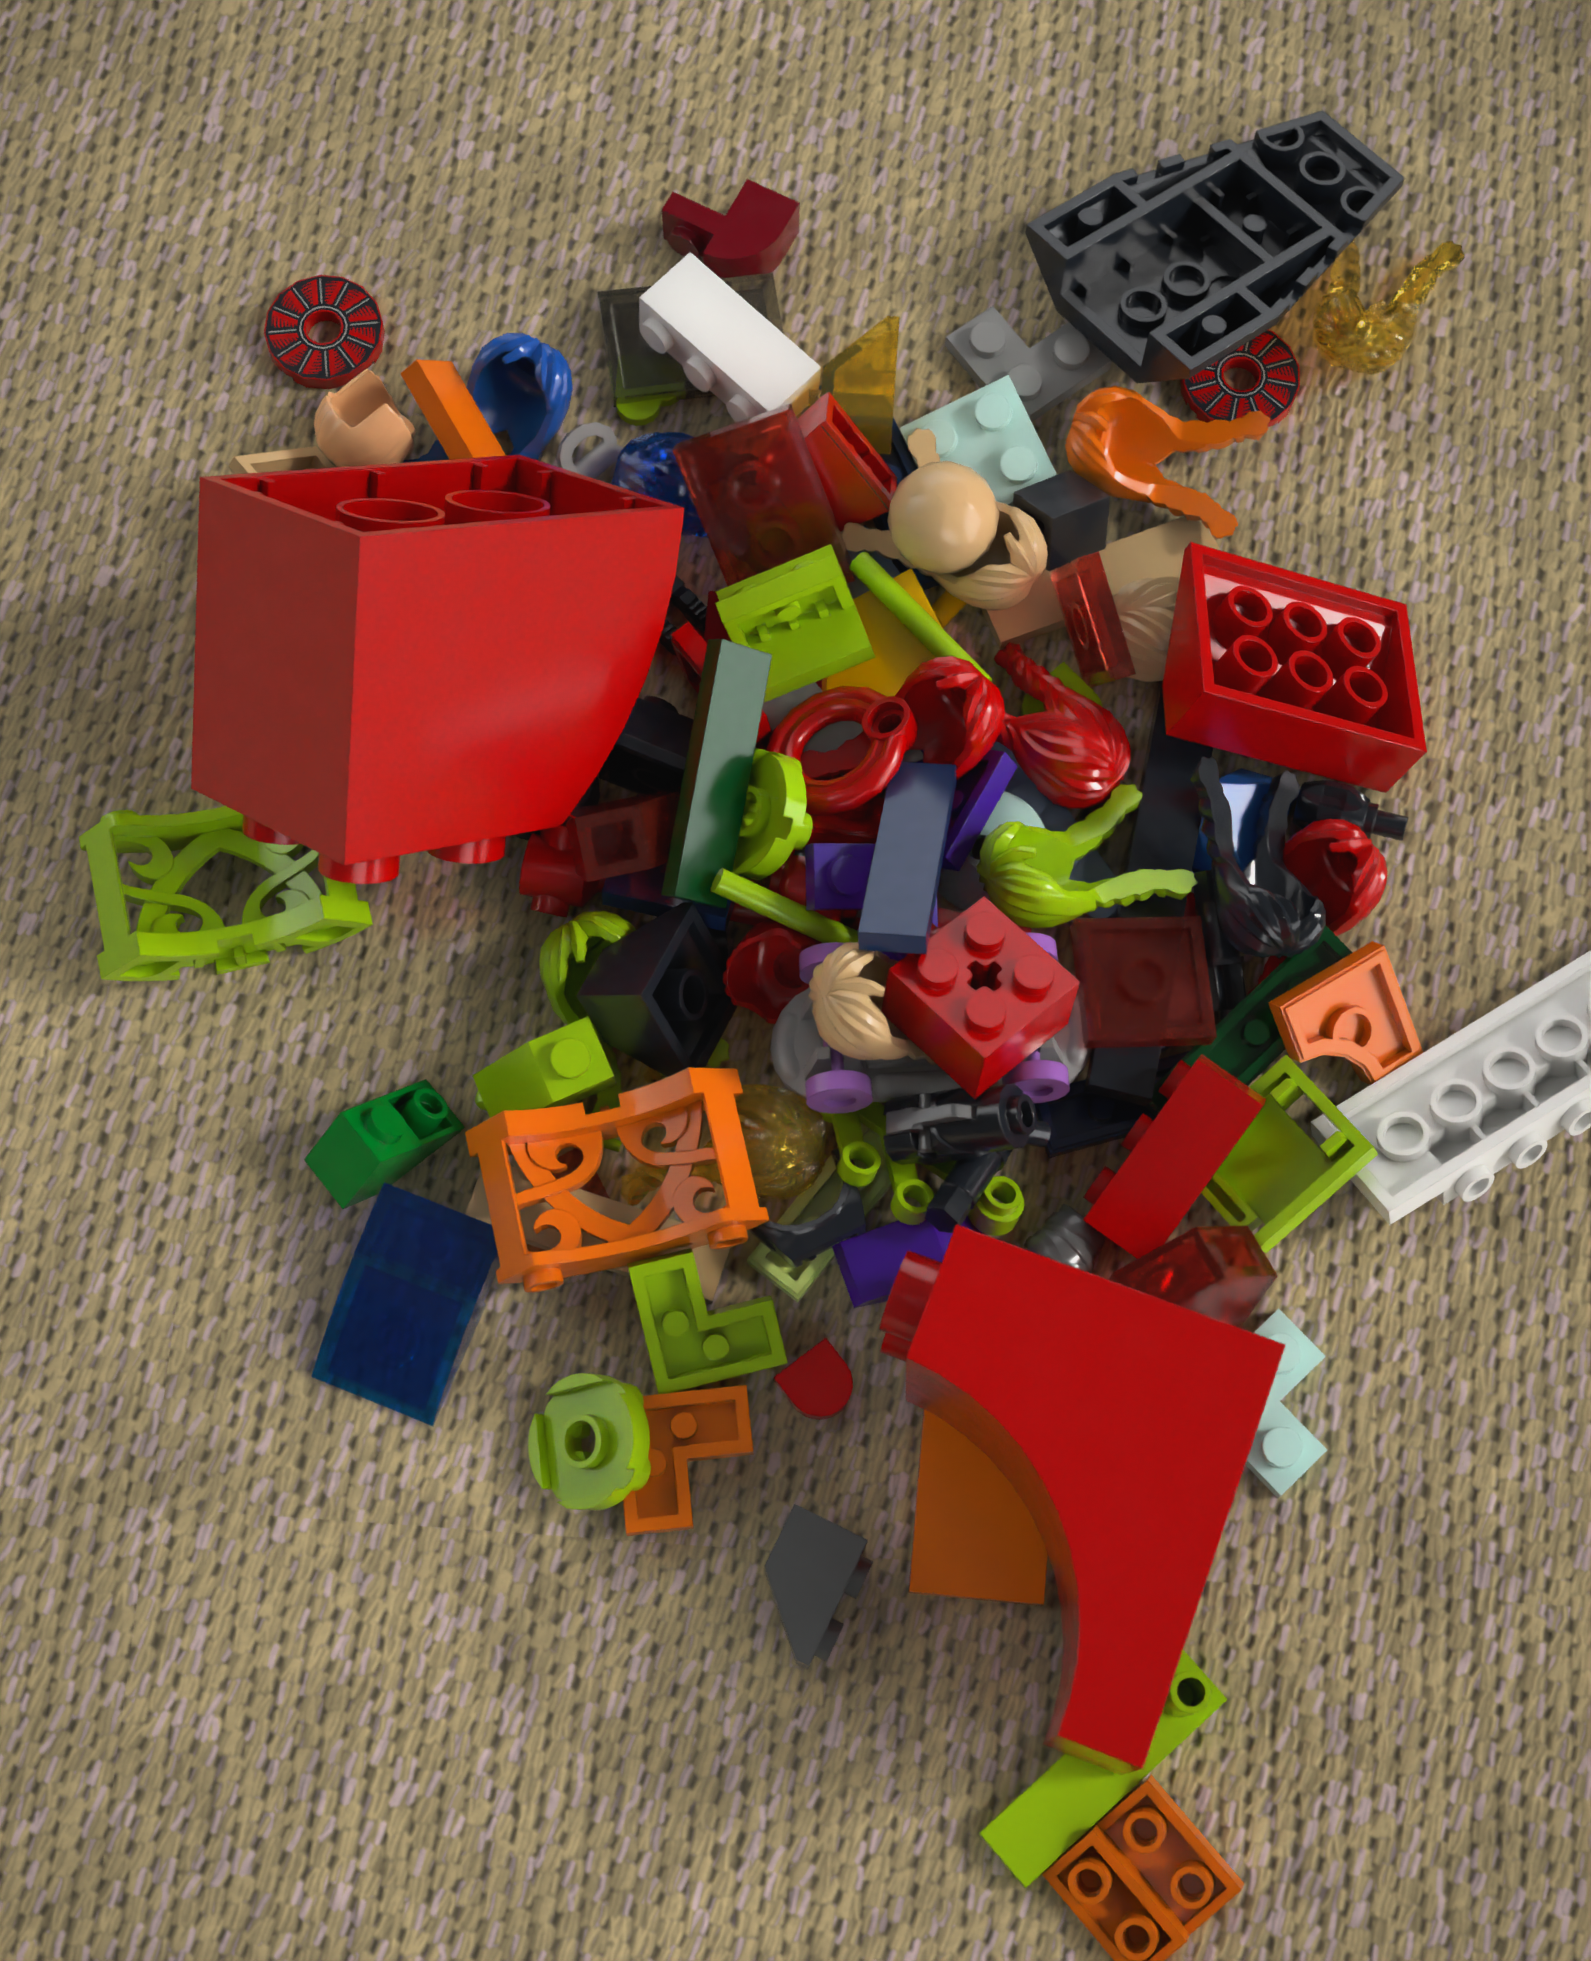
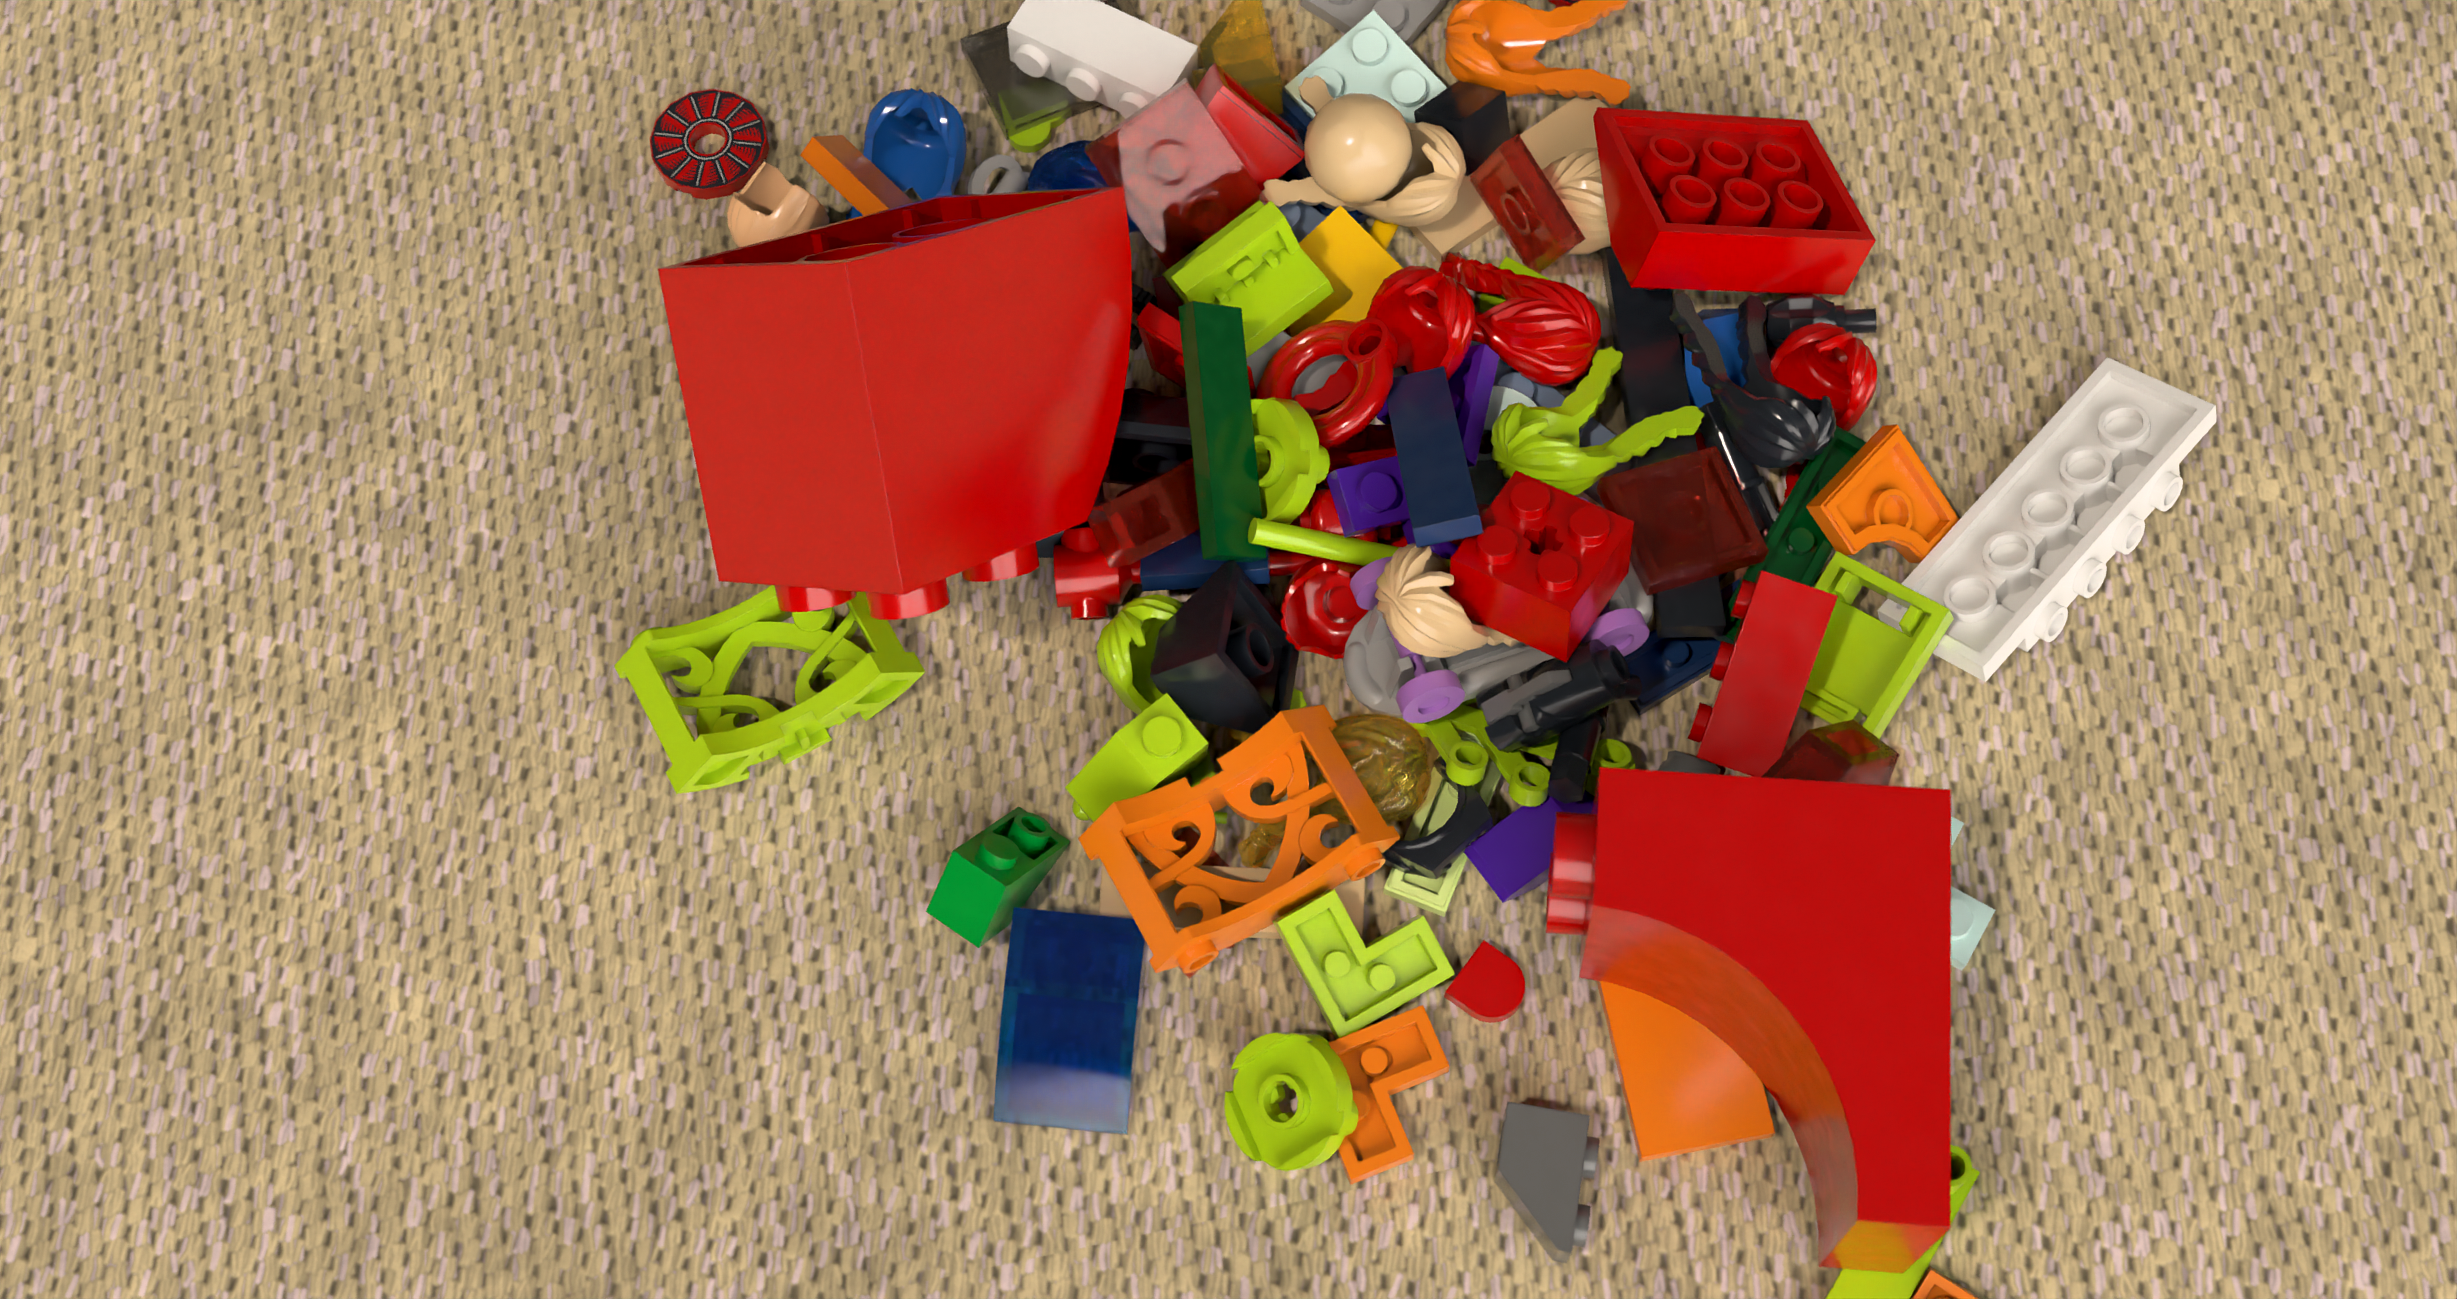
camera: 10 degrees left, 5 degrees down
(907, 609) = (1343, 240): lime bar -> none

